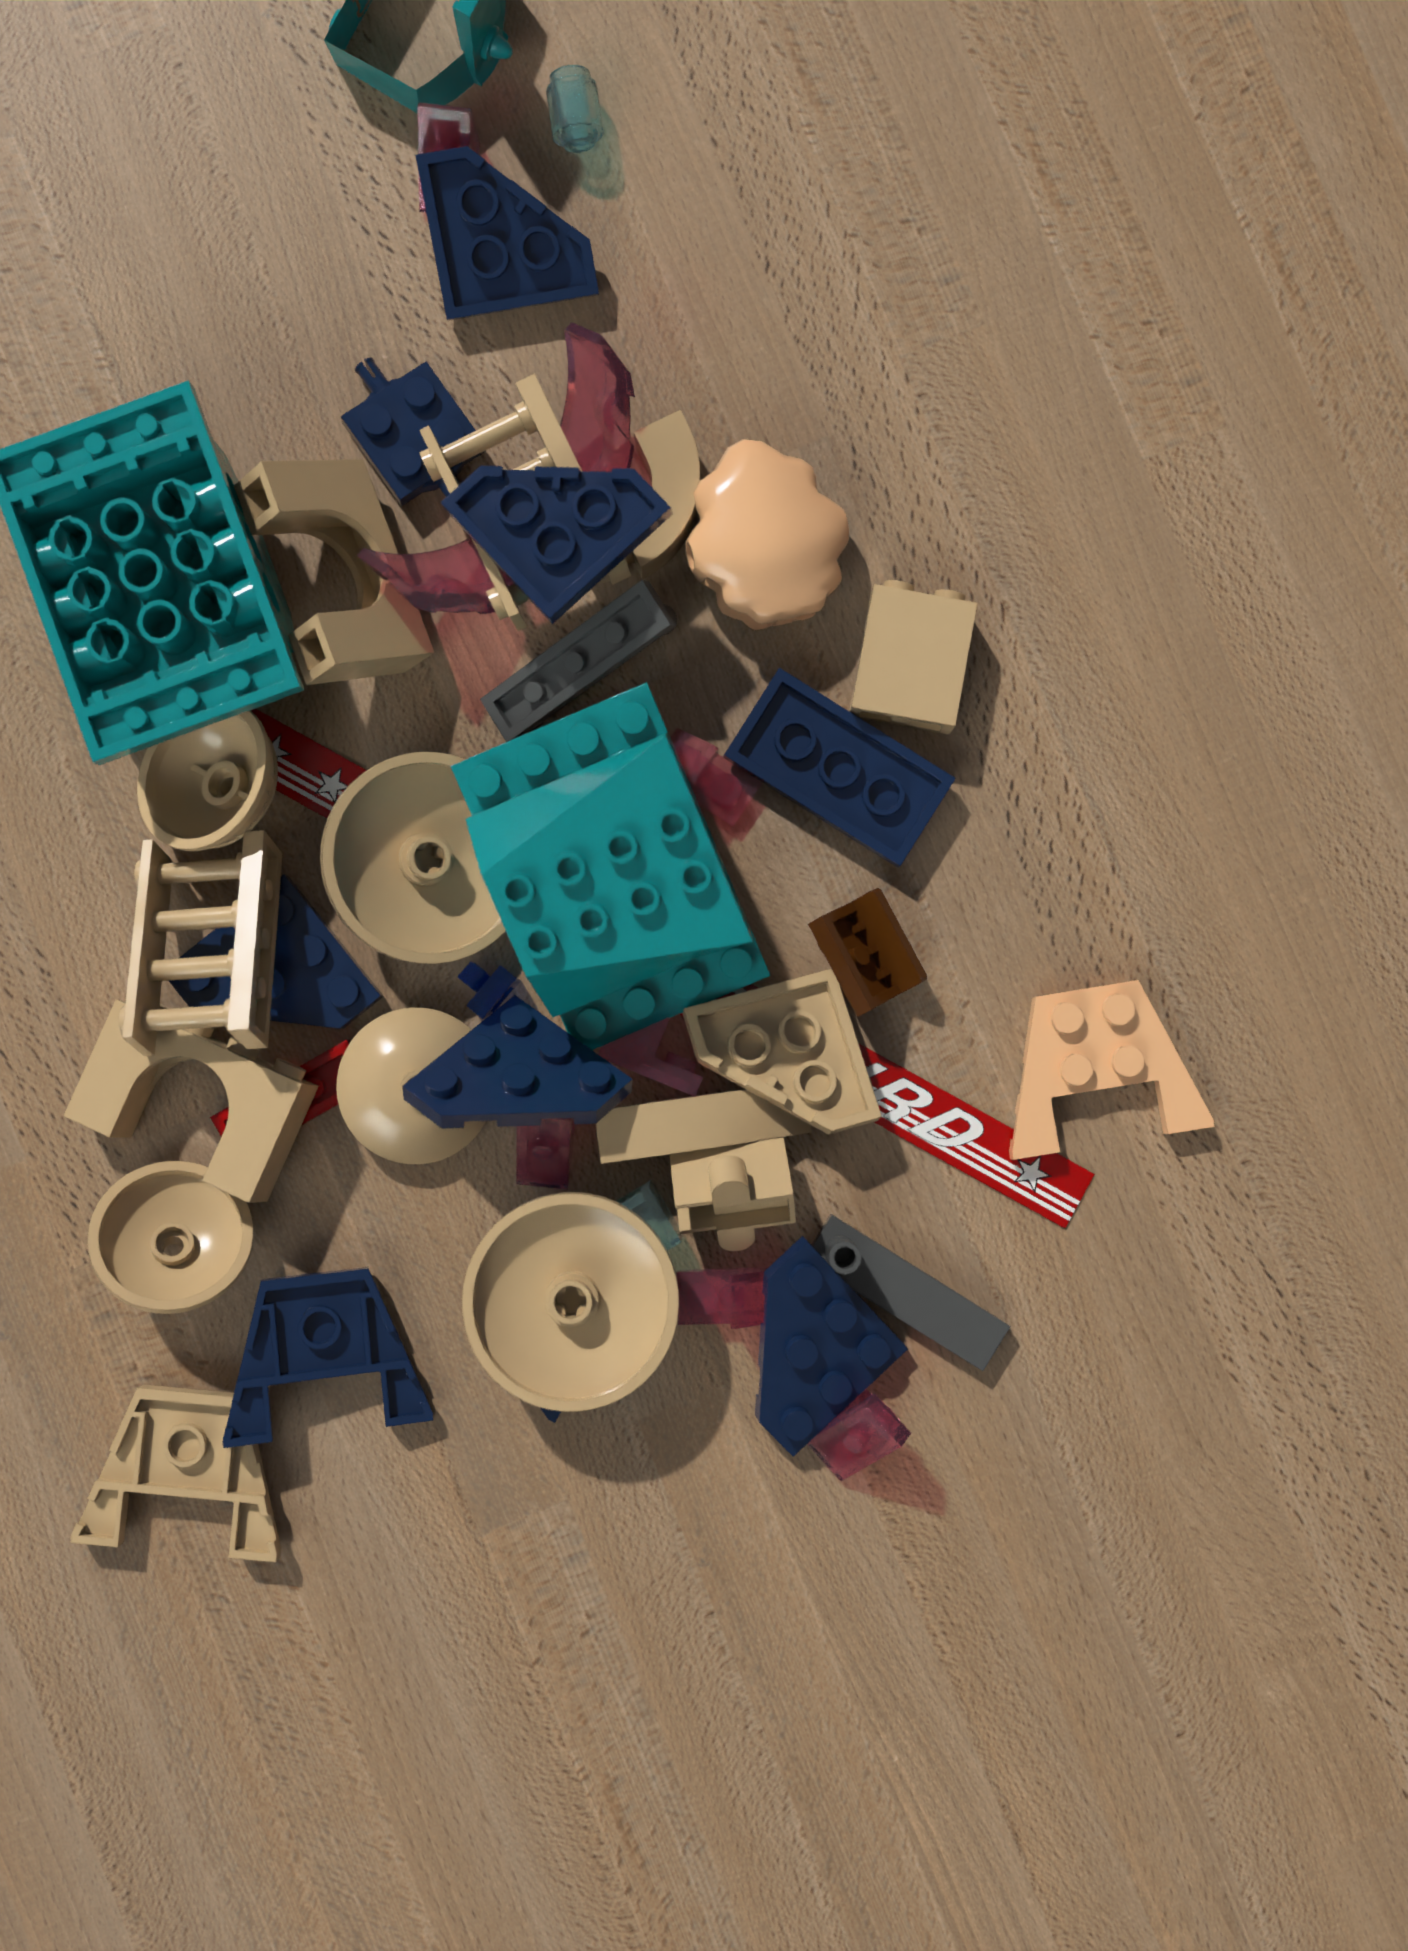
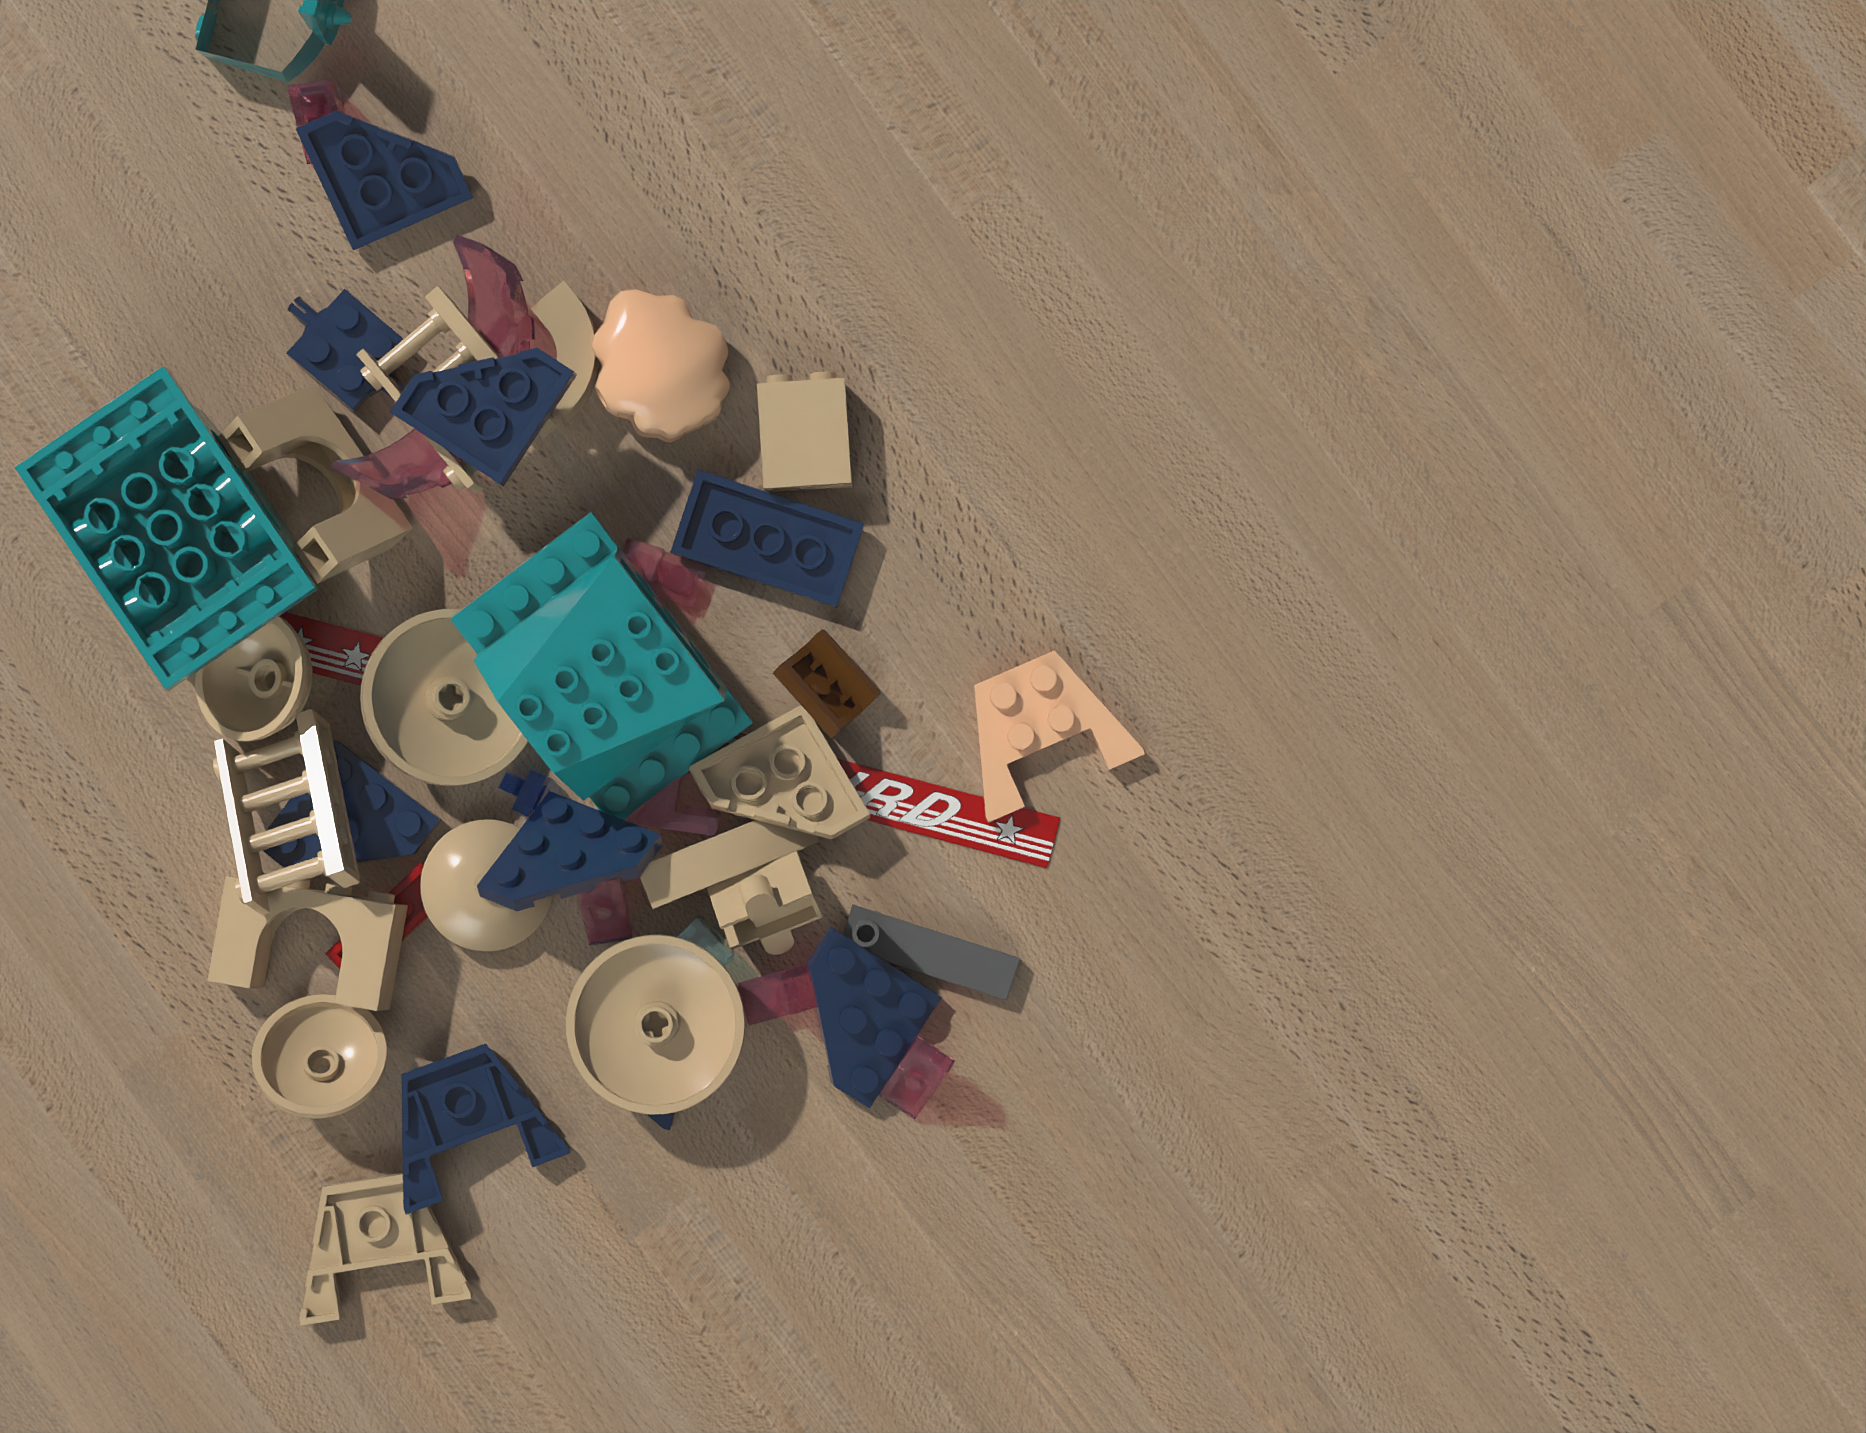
camera: 20 degrees left, 0 degrees up
(574, 108) = (414, 50): clear light blue brick -> none
(579, 660) = (533, 505): dark grey piece -> none

